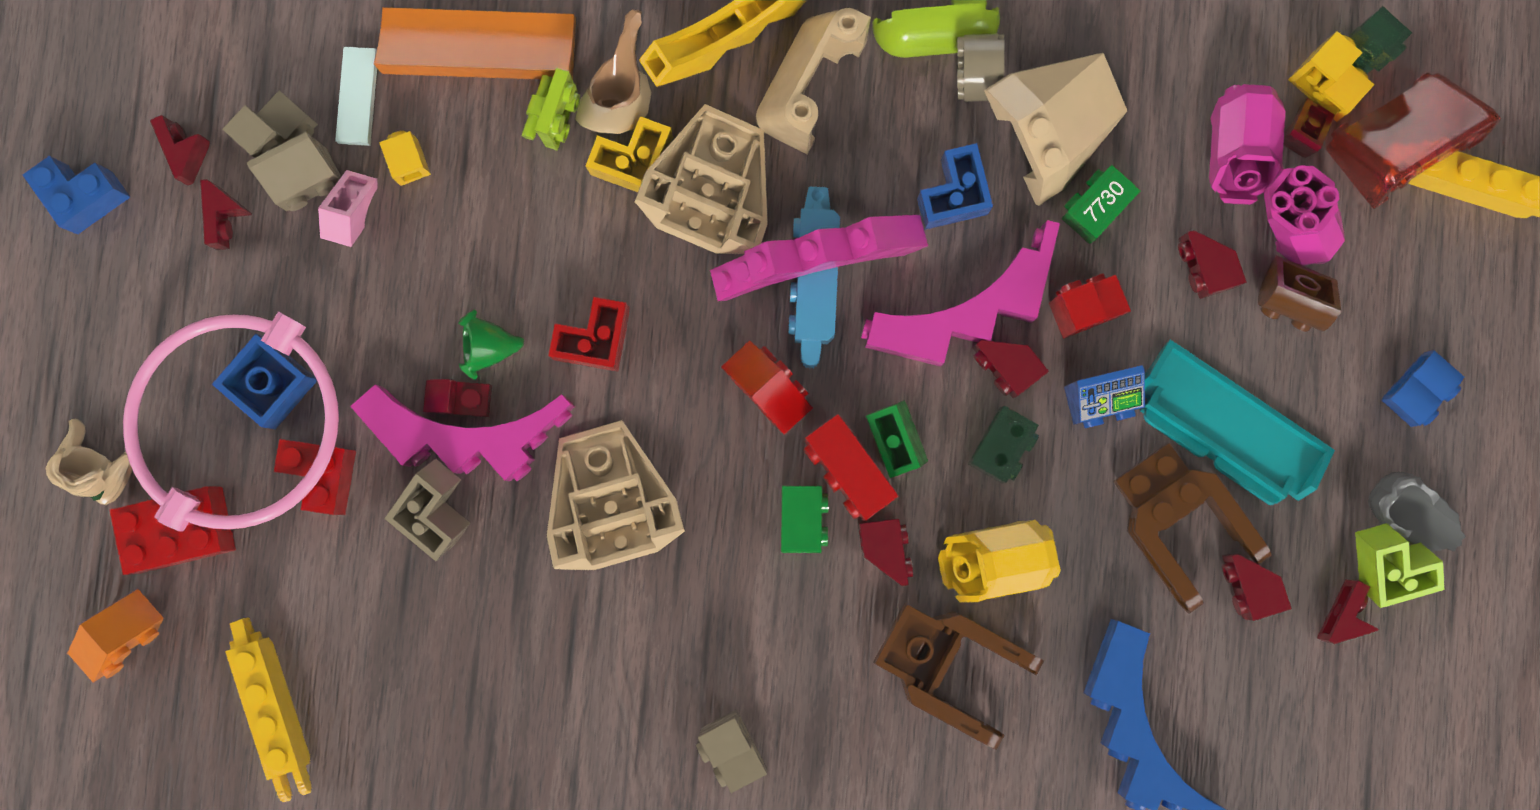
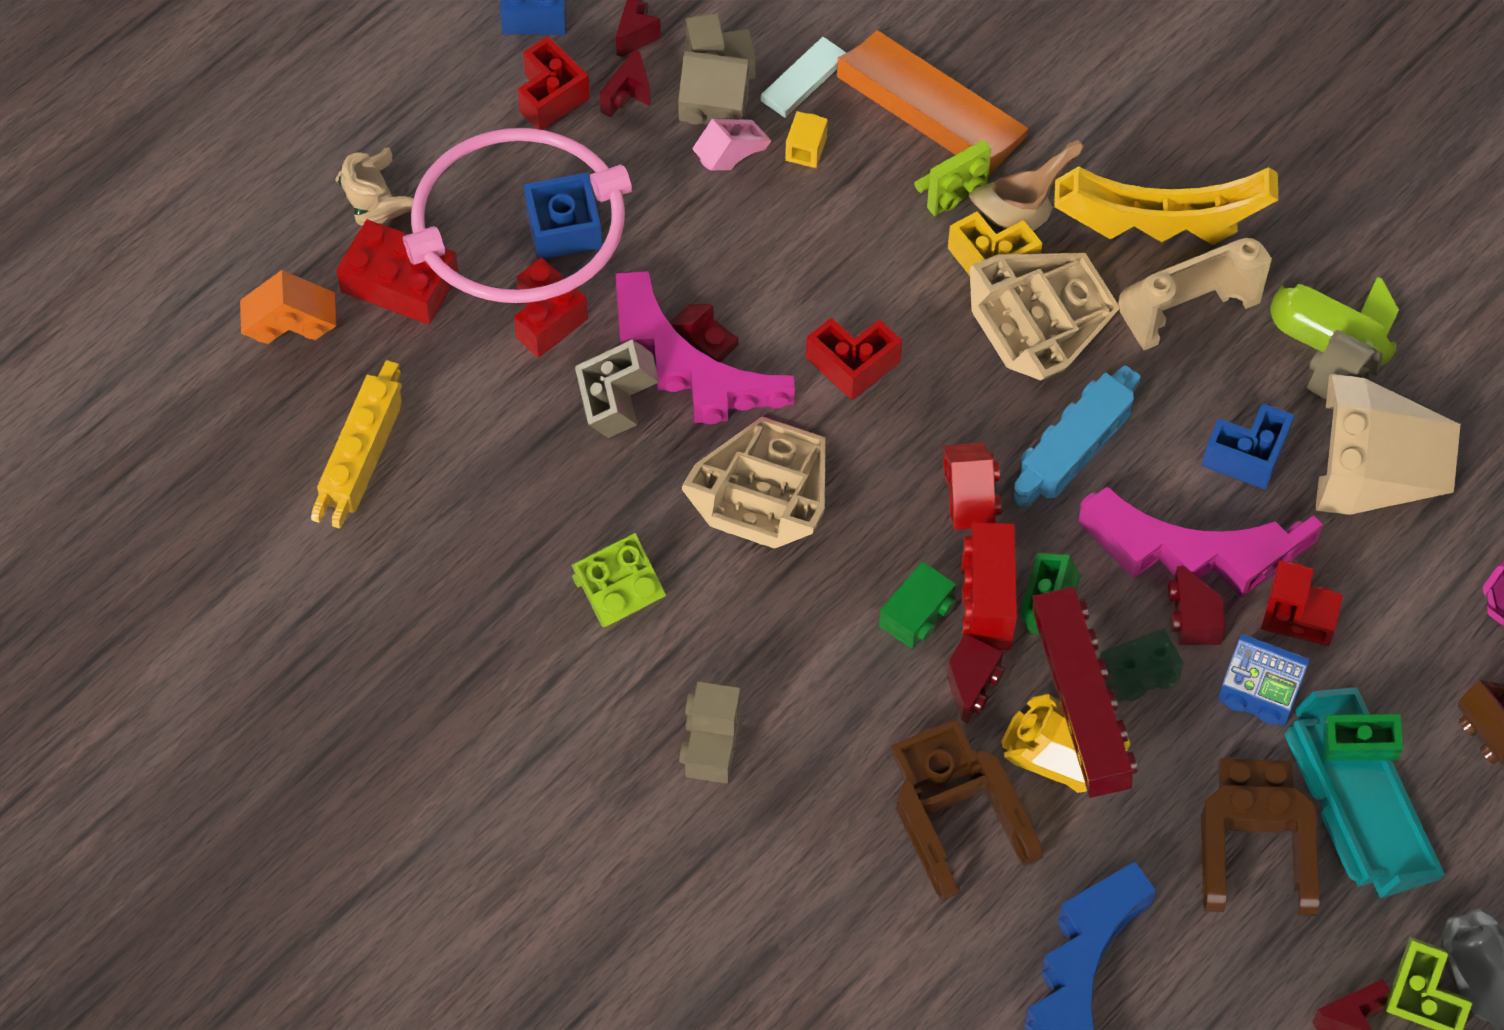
camera: 30 degrees right, 25 degrees down
(164, 260) = (554, 85): none -> red brick
(485, 344) = (761, 305): green hat -> none
(561, 672) = (618, 580): none -> lime plate
(818, 251) = (1099, 403): dark pink arch -> none
(997, 527) = (1083, 692): none -> dark red brick
(1100, 204) = (1372, 541): green brick -> none
(1211, 264) = (1439, 653): dark red slope -> none
(1214, 391) = (1362, 737): none -> green brick
(1256, 589) = (1285, 932): dark red slope -> none

